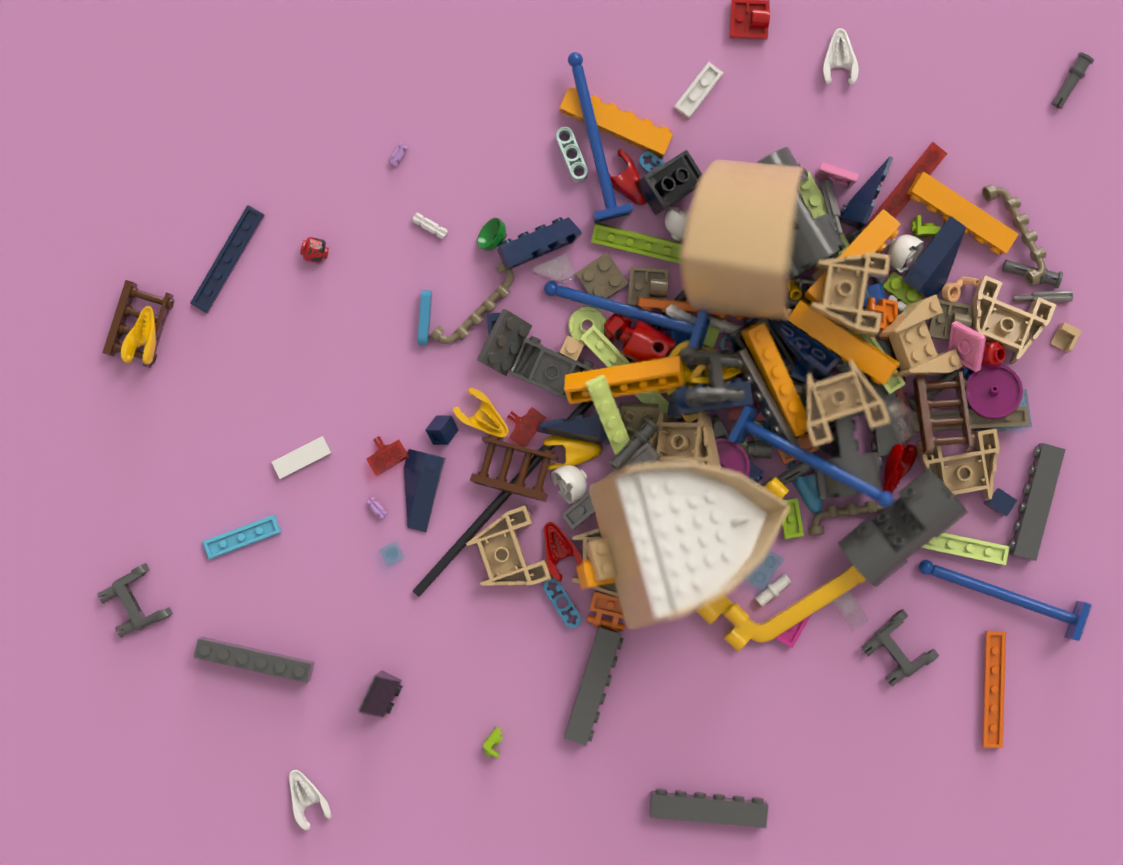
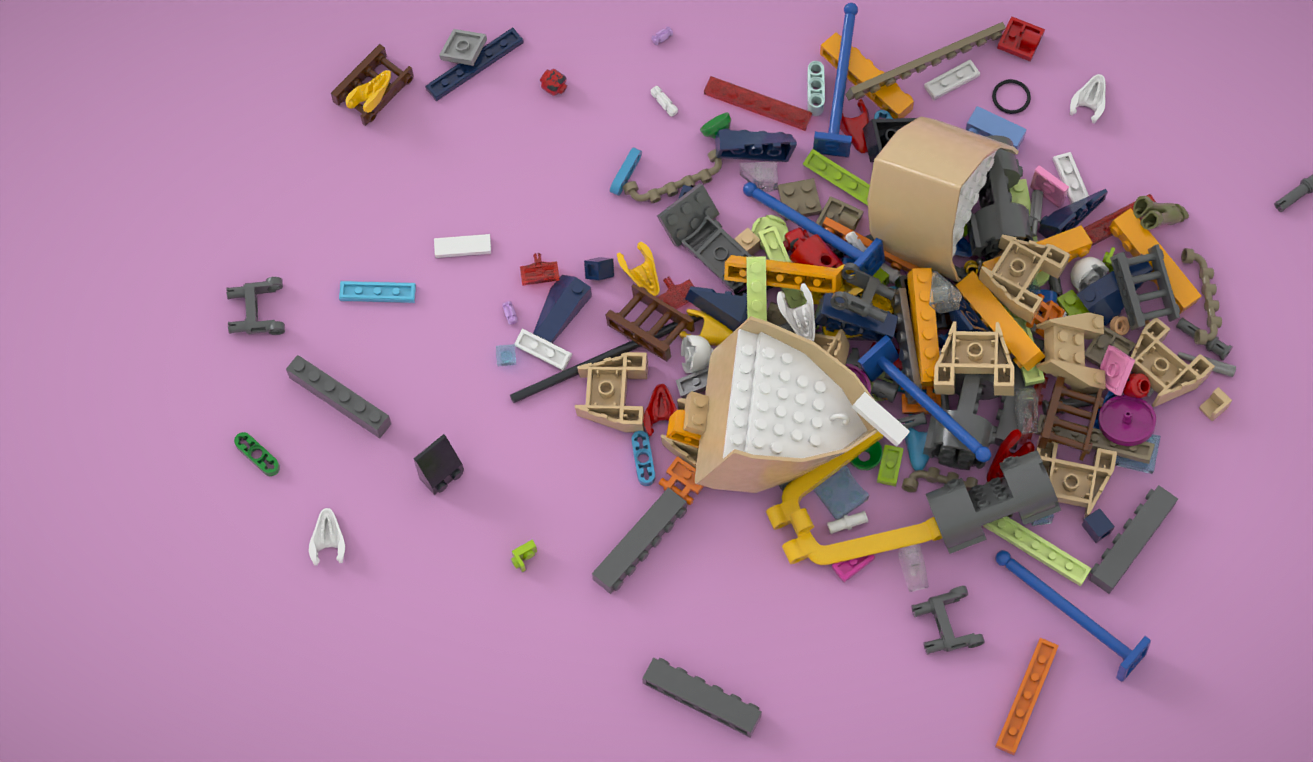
camera: 25 degrees right, 20 degrees down
(192, 734) = (259, 462): none -> green beam
(209, 248) = (463, 47): none -> light grey plate
(424, 533) = (543, 349): none -> white tile
(520, 191) = (758, 103): none -> clear red plate
(657, 418) = (799, 318): none -> white animal
(665, 93) = (921, 64): none -> dark tan plate
(761, 131) = (989, 124): none -> medium blue brick
(762, 68) = (1006, 110): none -> black tyre
(781, 509) = (880, 419): none -> white tile
(786, 343) = (943, 294): none -> clear slope
(851, 153) = (1070, 176): none -> white tile
(948, 254) = (1128, 293): none -> dark grey fence
(958, 157) = (1158, 214): none -> olive piece

